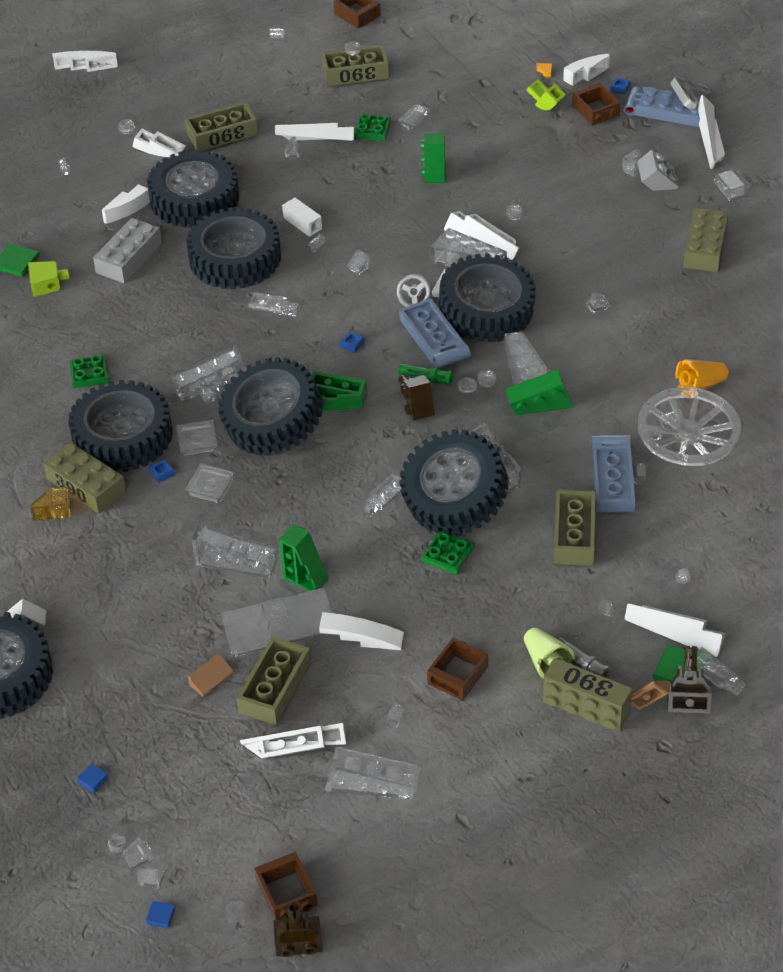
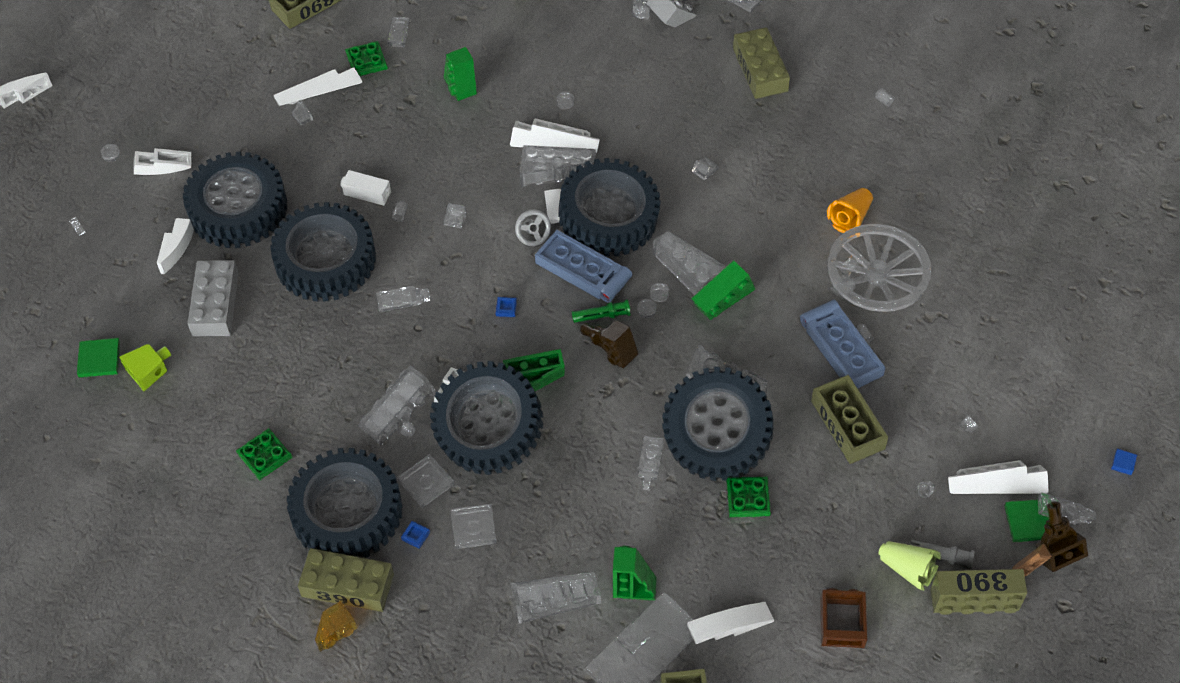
camera: 30 degrees left, 10 degrees up
(221, 126) = (216, 117): olive brick -> none

